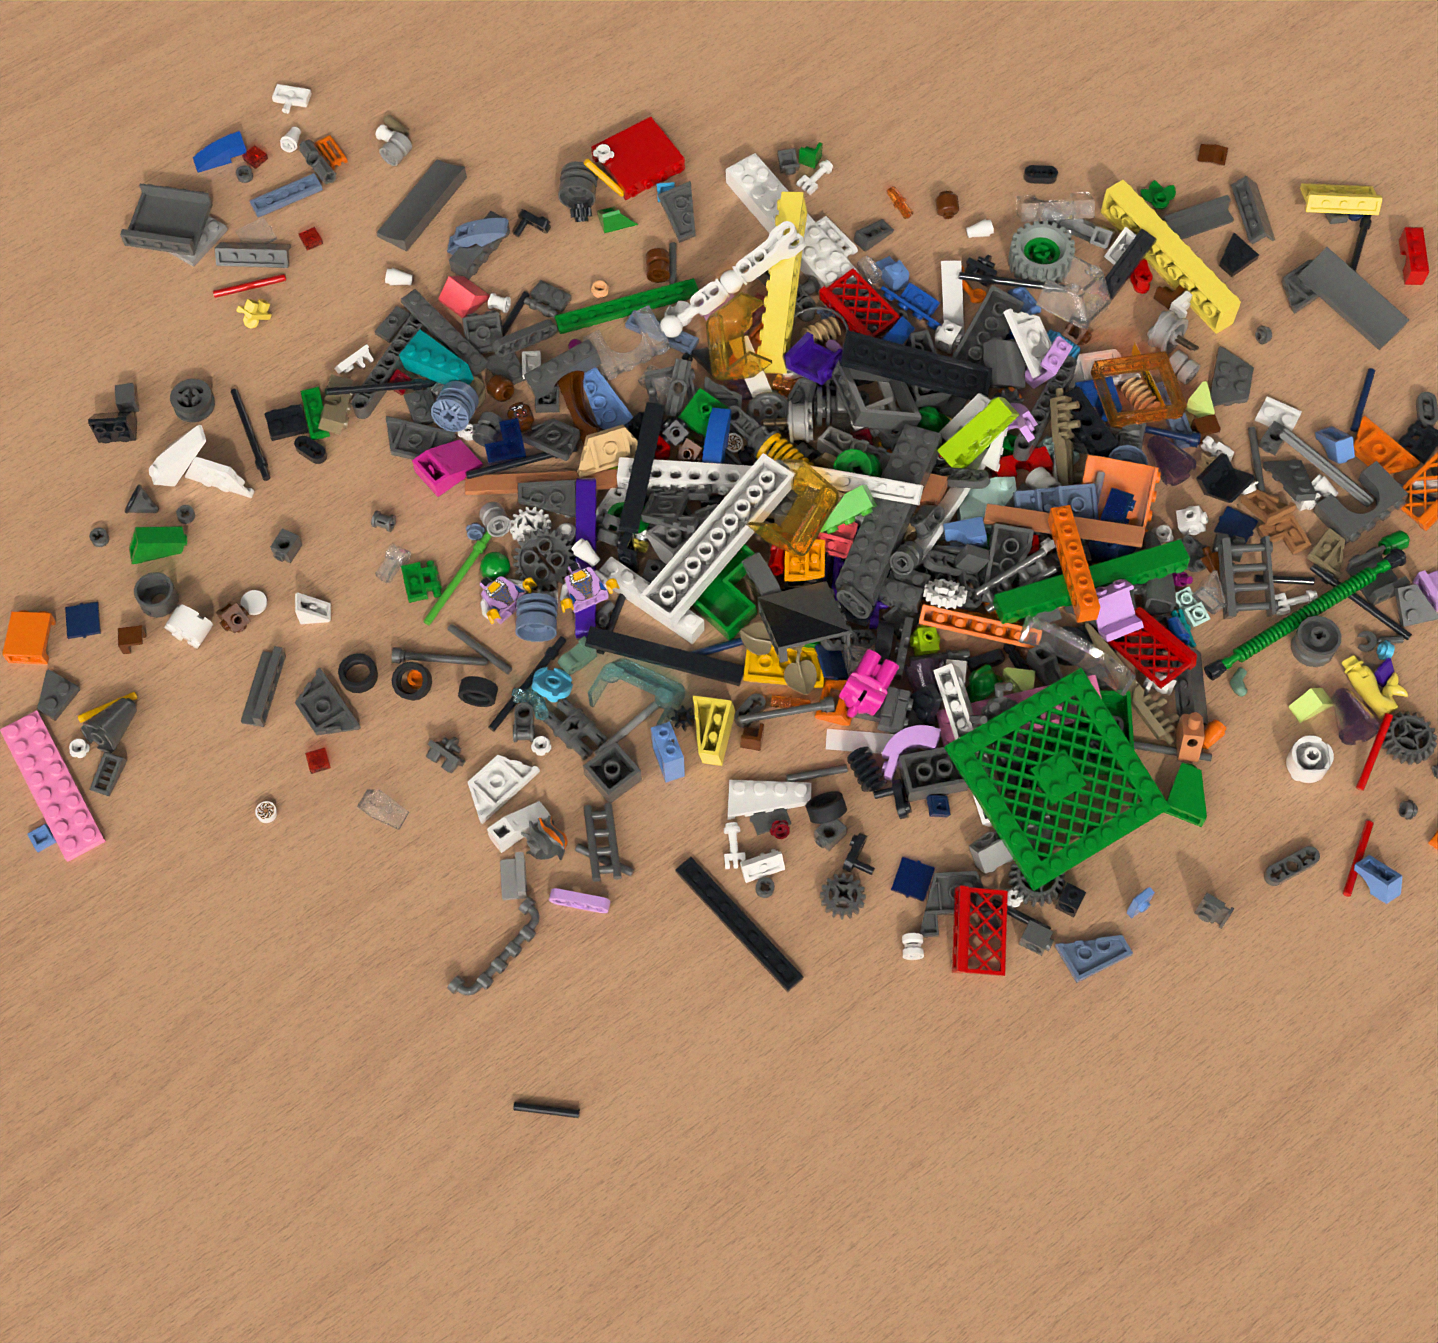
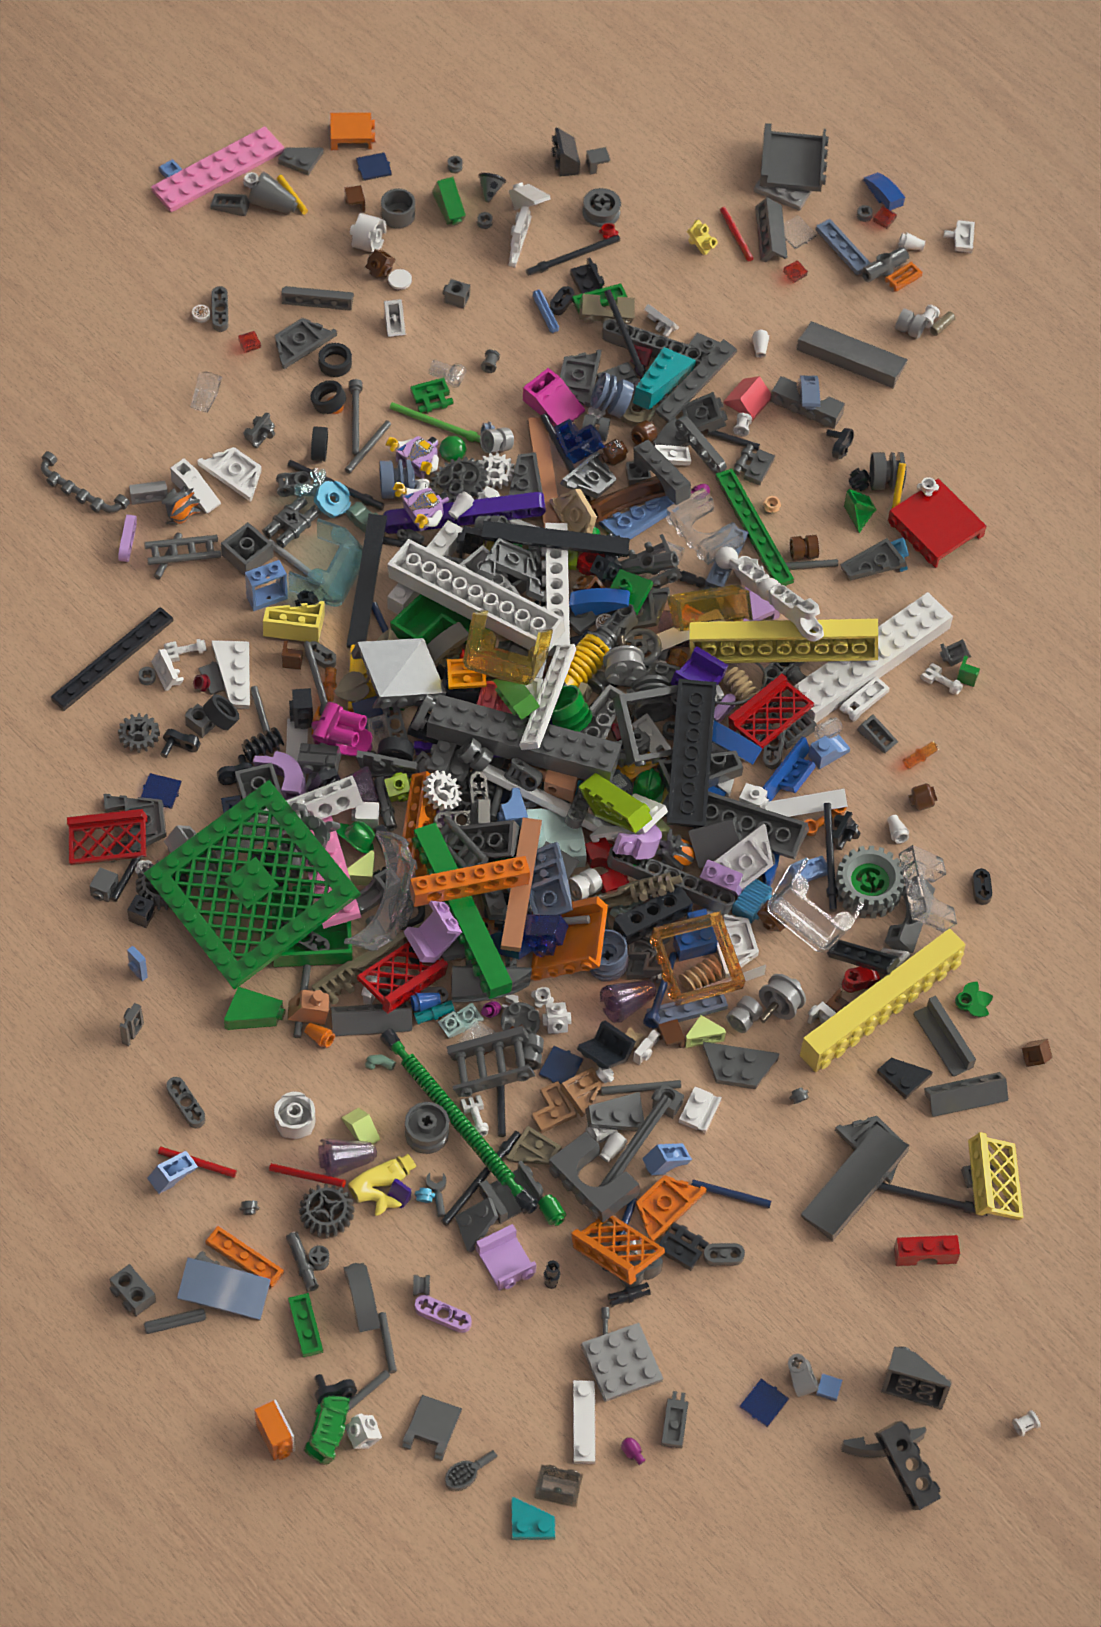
camera: 80 degrees right, 5 degrees down
(225, 397) = (608, 230): none -> red plate
(277, 797) = (220, 314): none -> dark grey beam
(322, 465) = (545, 311): none -> medium blue axle
(541, 740) = (274, 495): white plate -> none
(828, 725) = (301, 708): none -> black brick
(912, 946) = (93, 788): white wheel -> none
(1093, 956) = (89, 932): sand blue wing -> none

